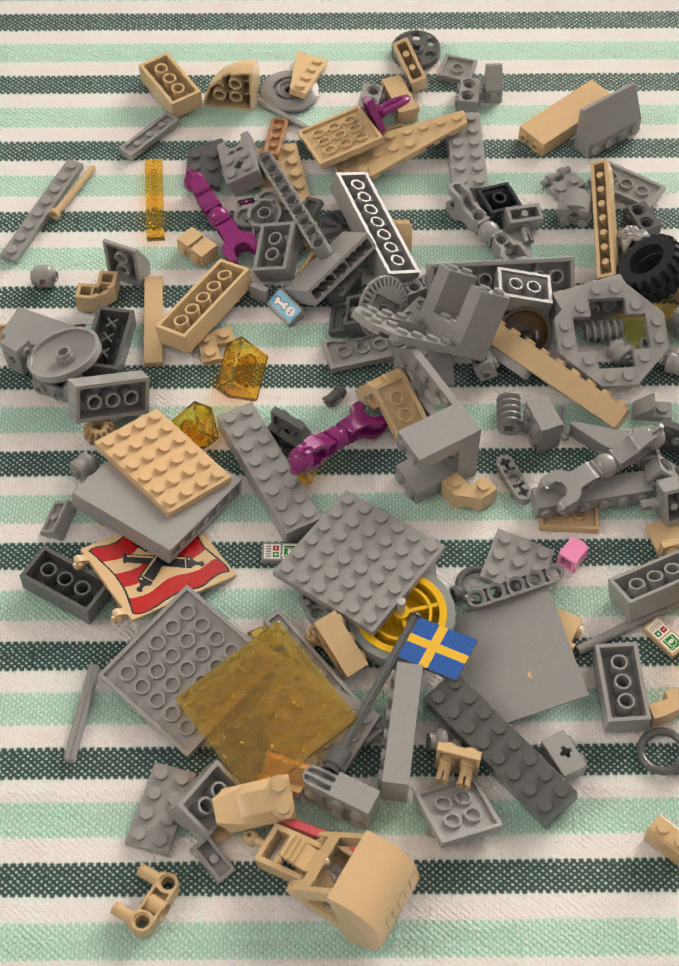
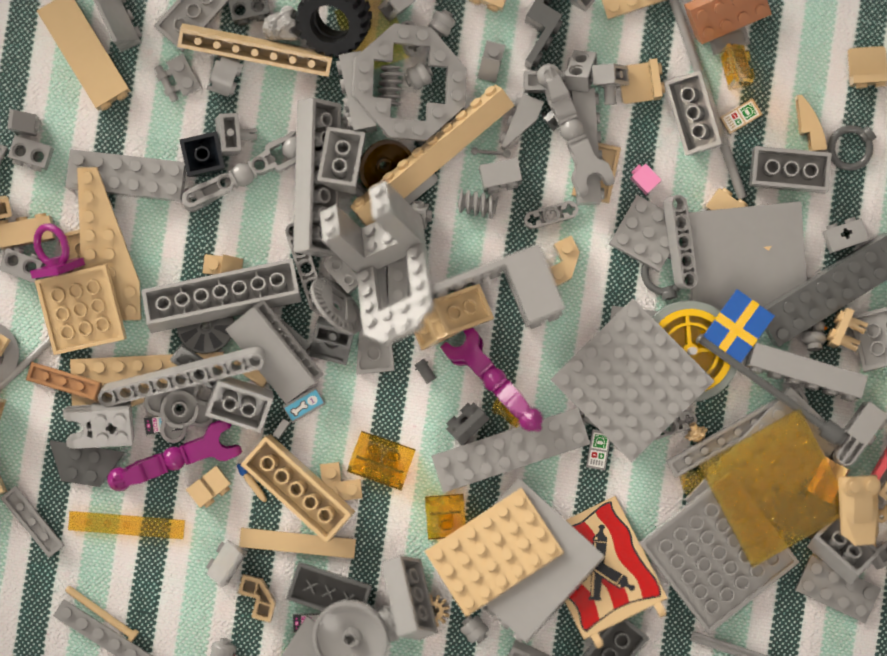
camera: 85 degrees left, 30 degrees up
(339, 644) = (713, 412): tan brick -> none

